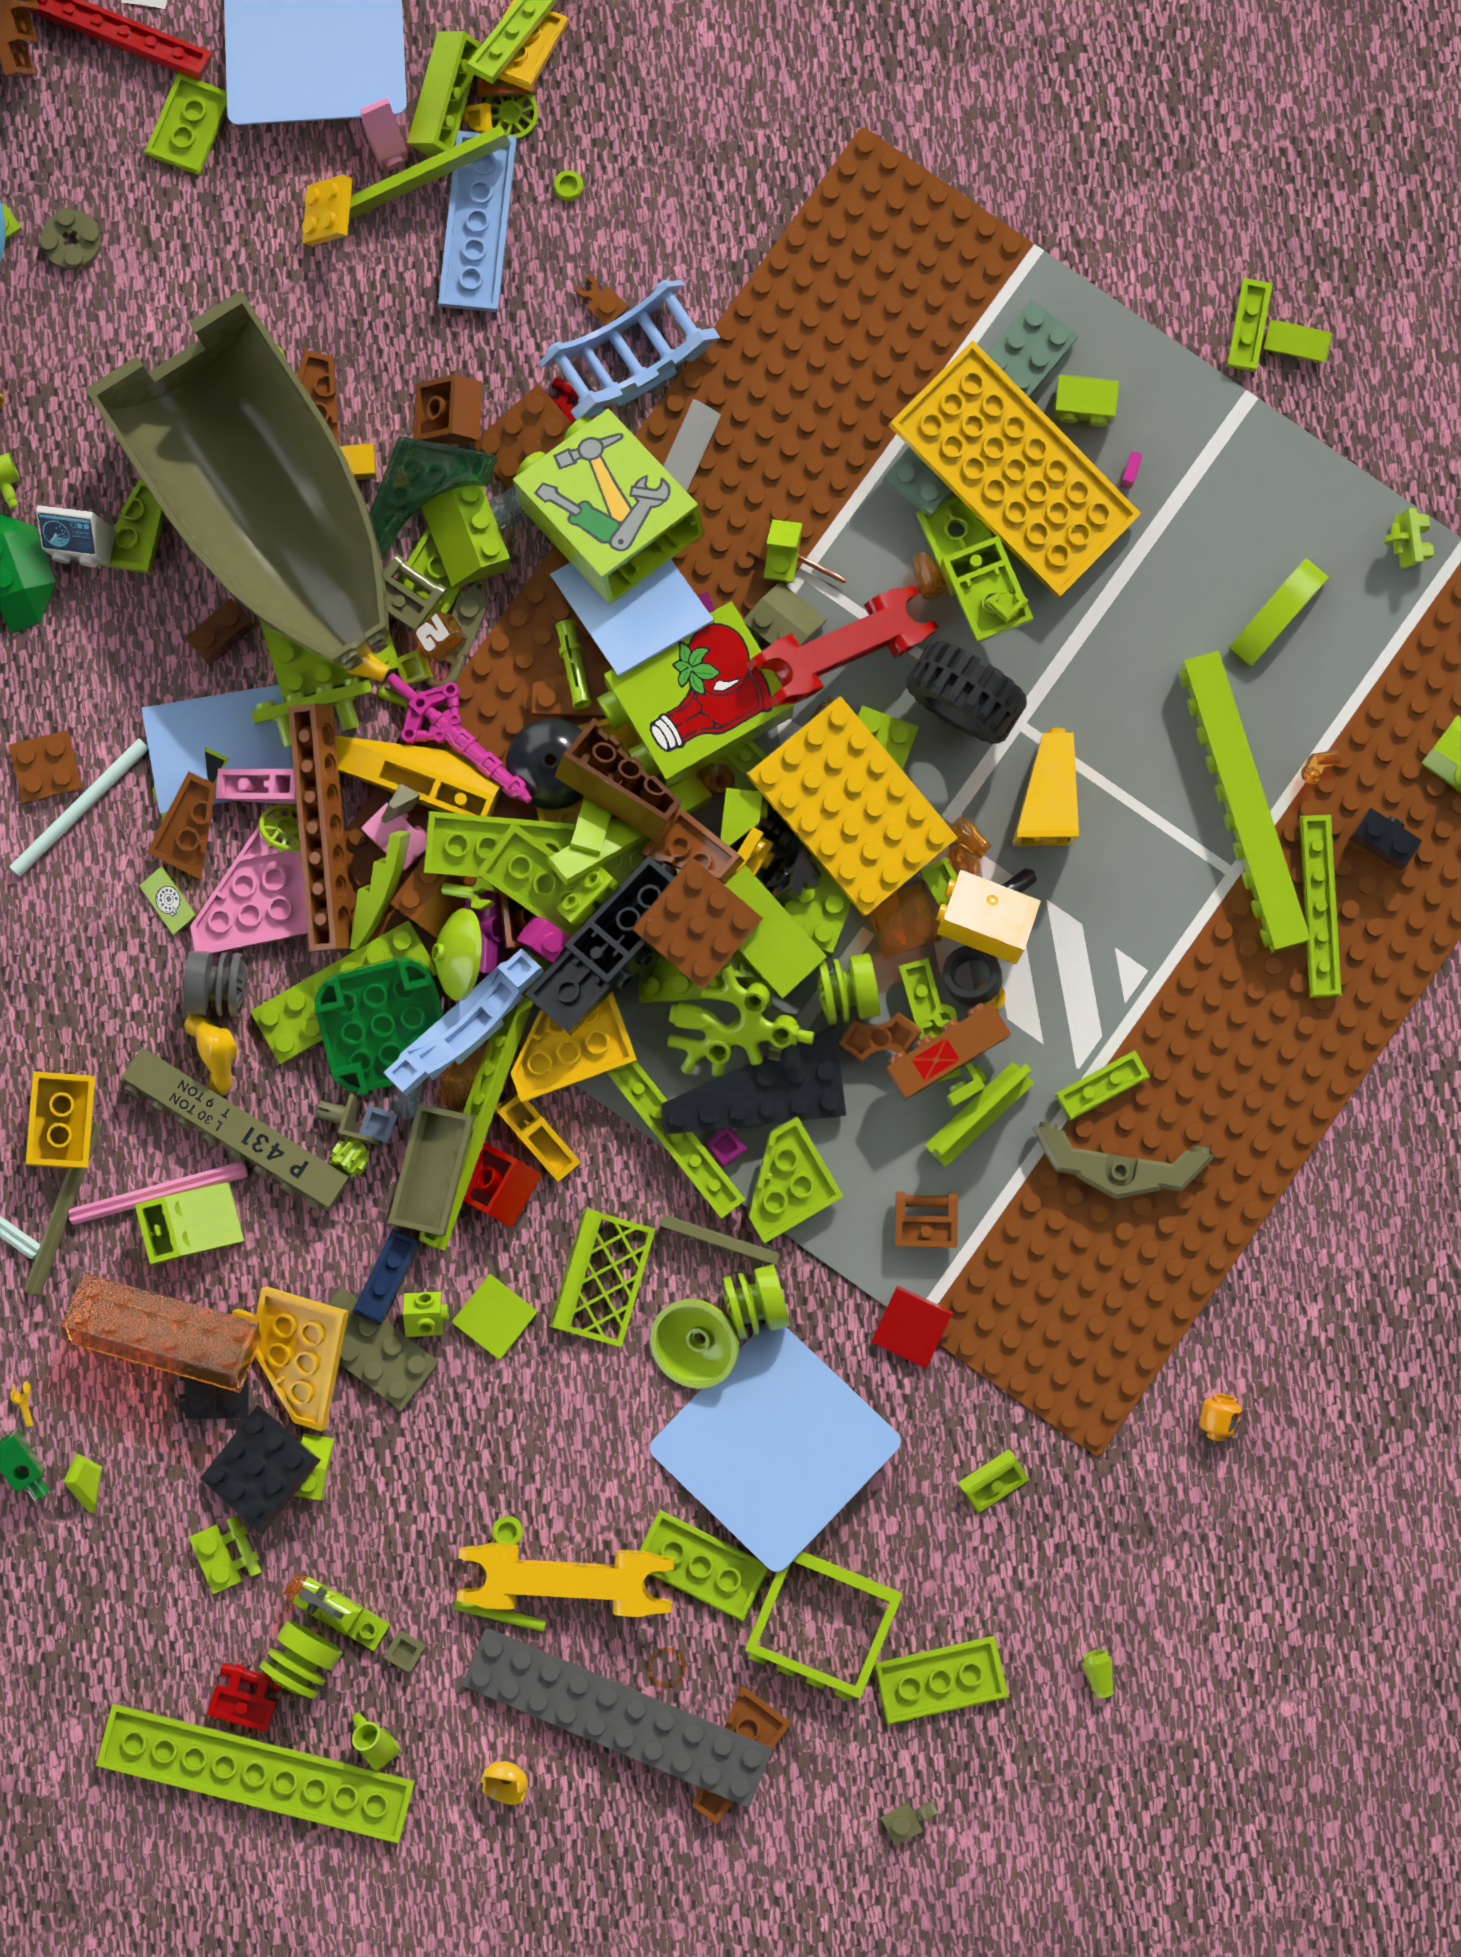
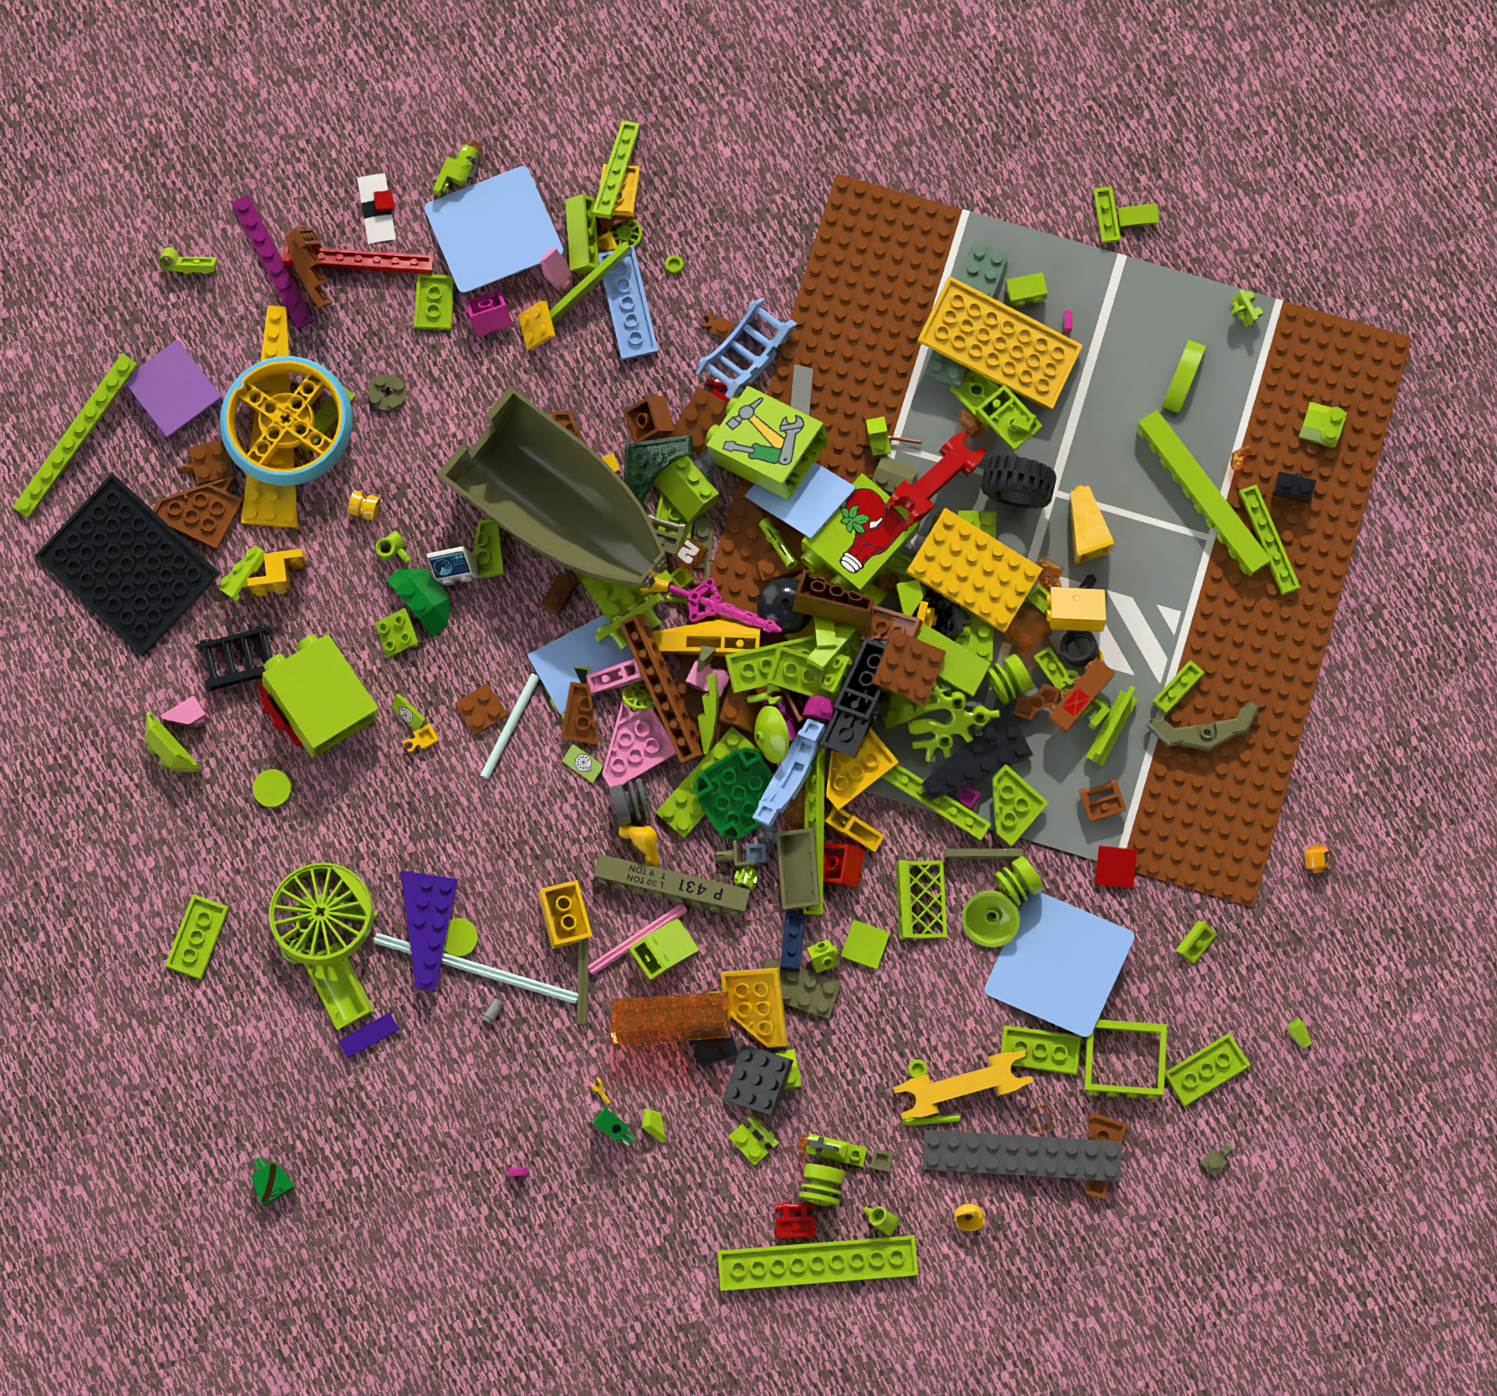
camera: 15 degrees left, 5 degrees down
(262, 167) = (488, 313): none -> dark pink slope

